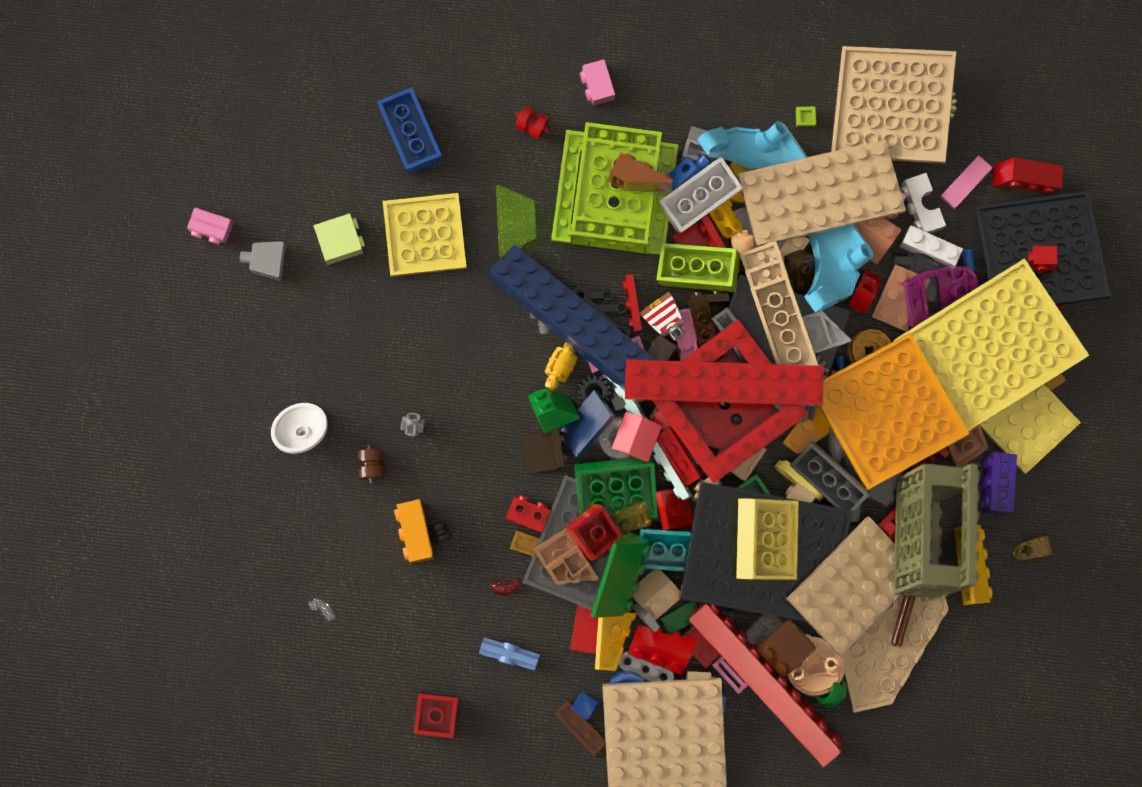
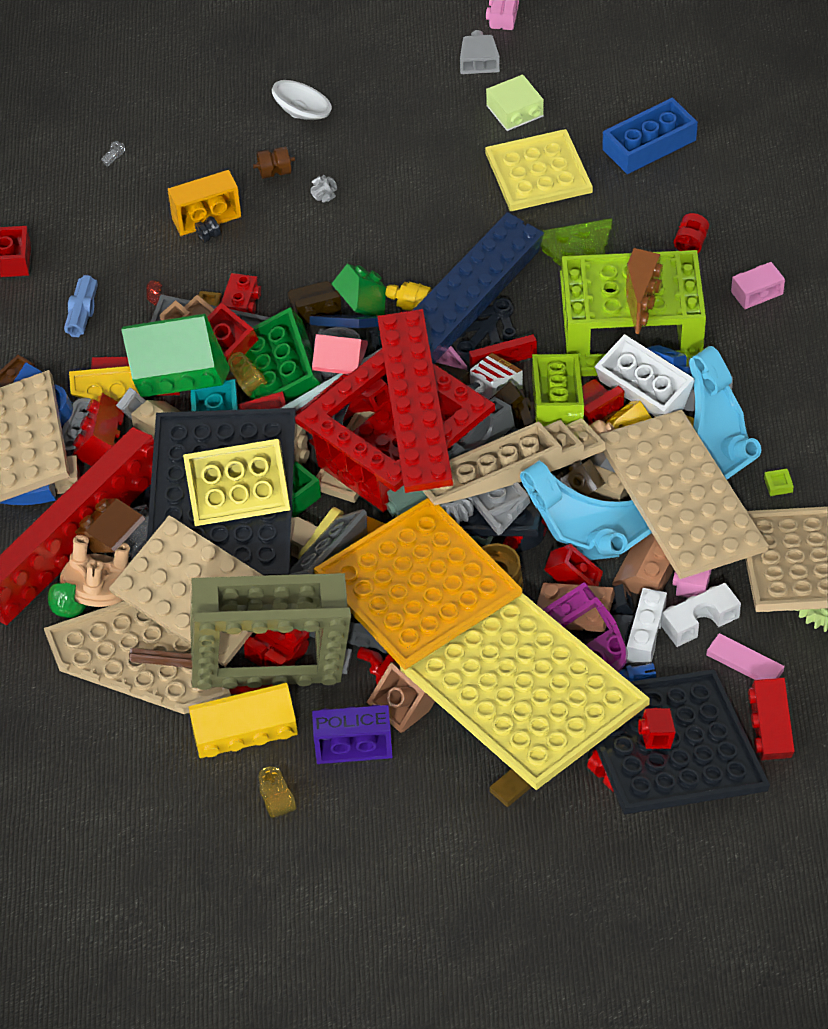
camera: 90 degrees right, 30 degrees down
(1031, 427) = (442, 769): light yellow plate -> none

